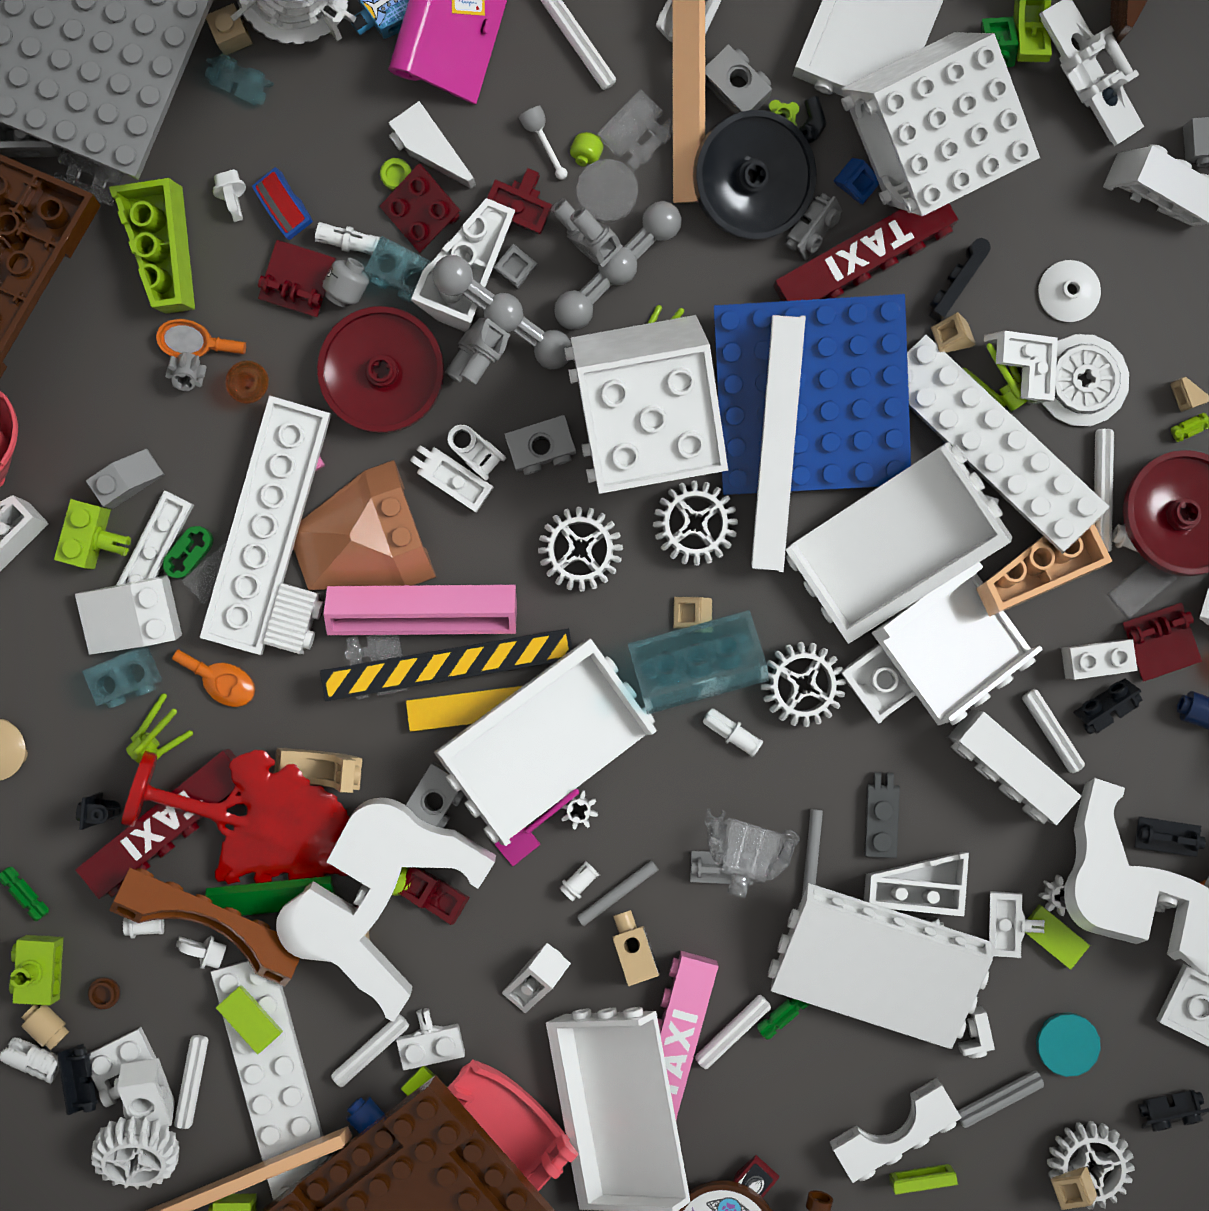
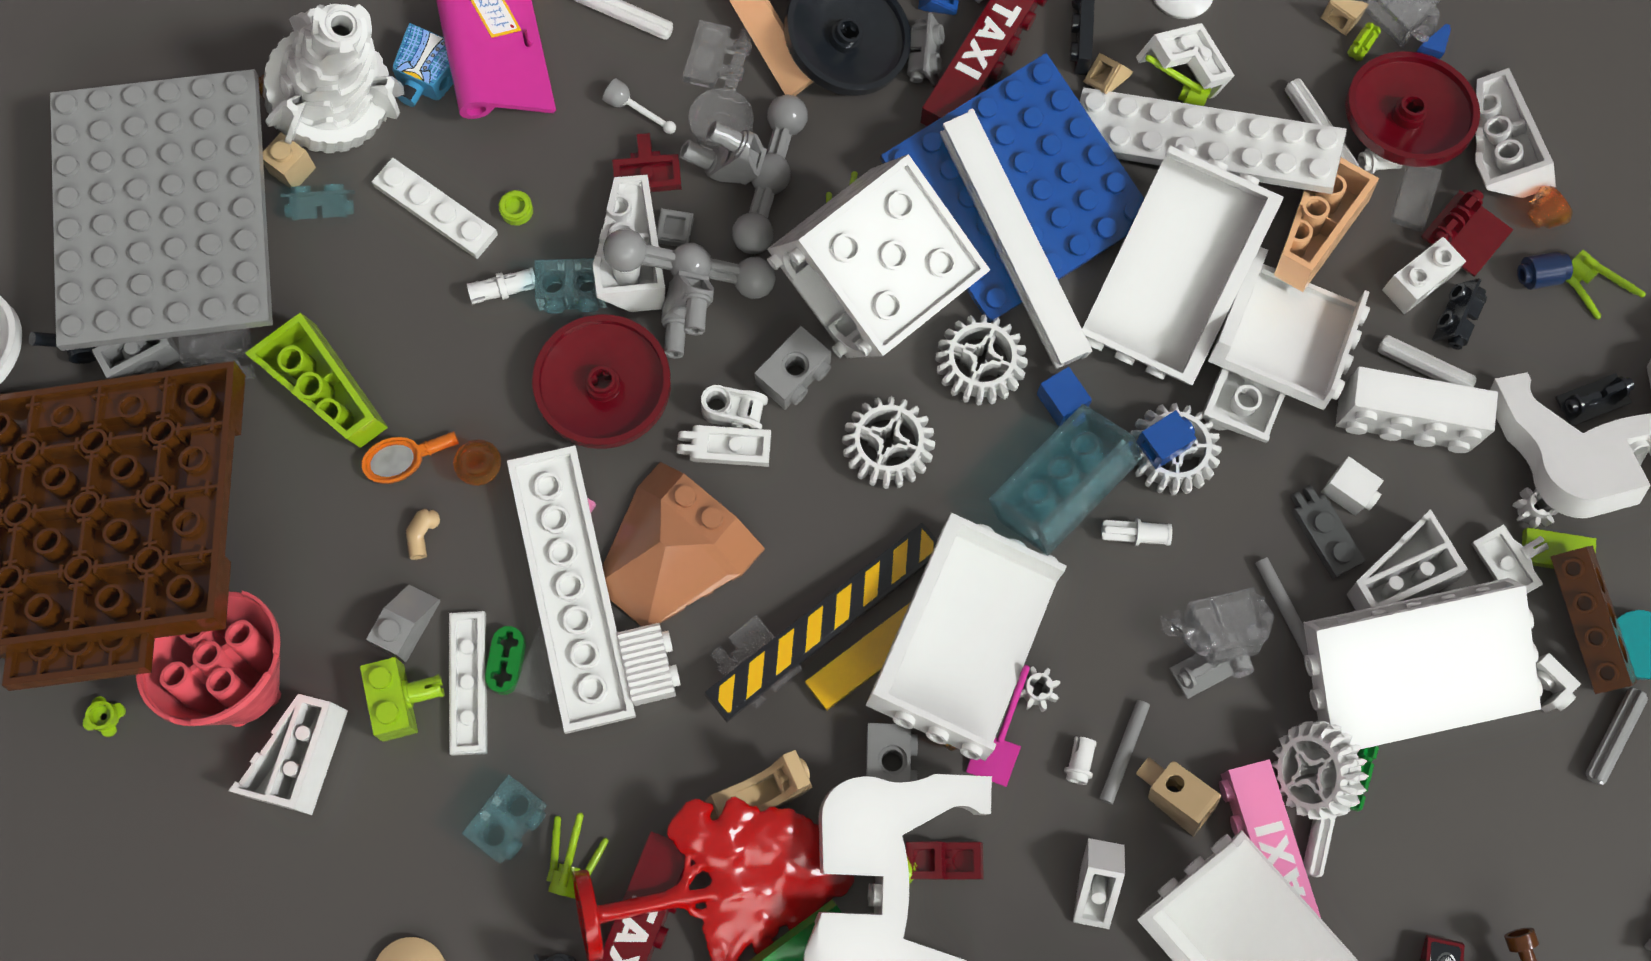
camera: 25 degrees left, 15 degrees down
(129, 615) = (477, 754): white slope -> none
(173, 409) = (417, 529): none -> tan arm
(185, 371) = (410, 486): light grey gear -> none
(221, 680) = (609, 769): orange piece -> none
(229, 188) = (363, 302): white piece -> none
(282, 204) = (422, 286): slope -> none
(295, 278) = (472, 347): dark red hinge -> none
(329, 137) = (434, 208): none -> white plate
(345, 282) = (522, 321): light grey head -> none
(420, 208) = (556, 221): dark red hinge -> none
(420, 610) = (770, 582): bright pink brick -> none
(427, 144) = (533, 164): white slope -> none
(586, 148) = (679, 95): lime piece -> none
(691, 611) = (1025, 442): tan slope -> none
(742, 592) = (1063, 395): none -> blue brick
(751, 1017) = (1334, 781): none -> white gear
(796, 679) = (1166, 439): none -> blue brick
(864, 1152) = (1561, 787): white arch -> none
(923, 1179) = (1600, 858): lime tile -> none
(925, 796) = (1353, 487): none -> white brick
(1039, 1007) = (1594, 620): none -> reddish brown brick
(1108, 378) = (1270, 54): white piece -> none

